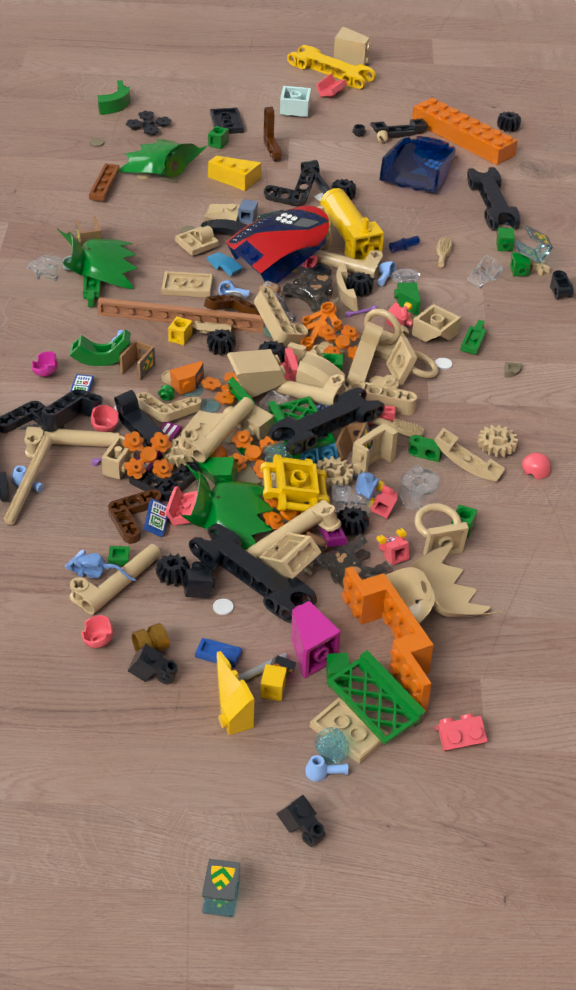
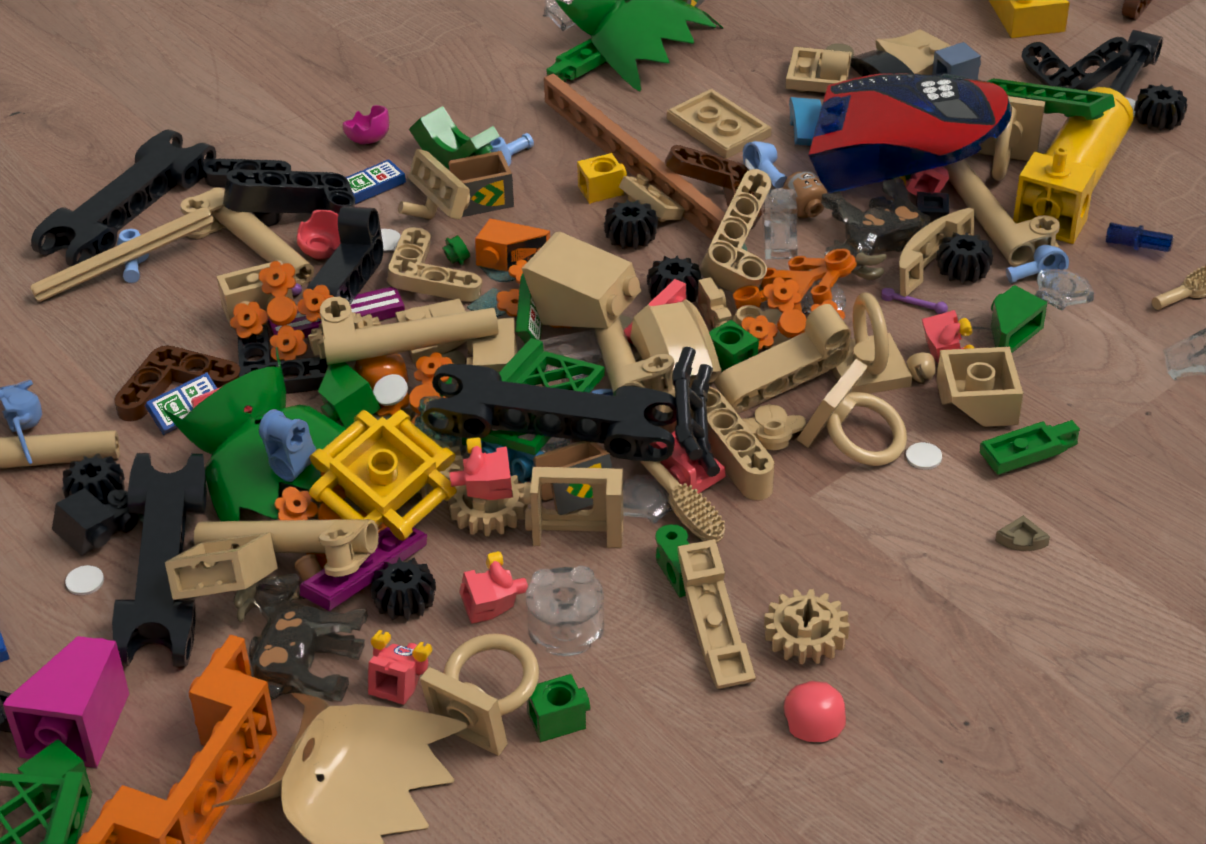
camera: 50 degrees right, 0 degrees up
(119, 555) = (69, 419): green plate -> none
(125, 369) = (439, 186): none -> tan plate
(239, 456) = (390, 389): none -> white piece
(254, 493) = (286, 444): none -> medium blue piece
(328, 201) = (1060, 100): none -> green plate
(336, 458) = (484, 474): none -> coral piece
(345, 496) = (444, 550): clear arch -> none
(357, 381) = (693, 432): none -> black piece
(366, 484) = (474, 545): medium blue animal -> none

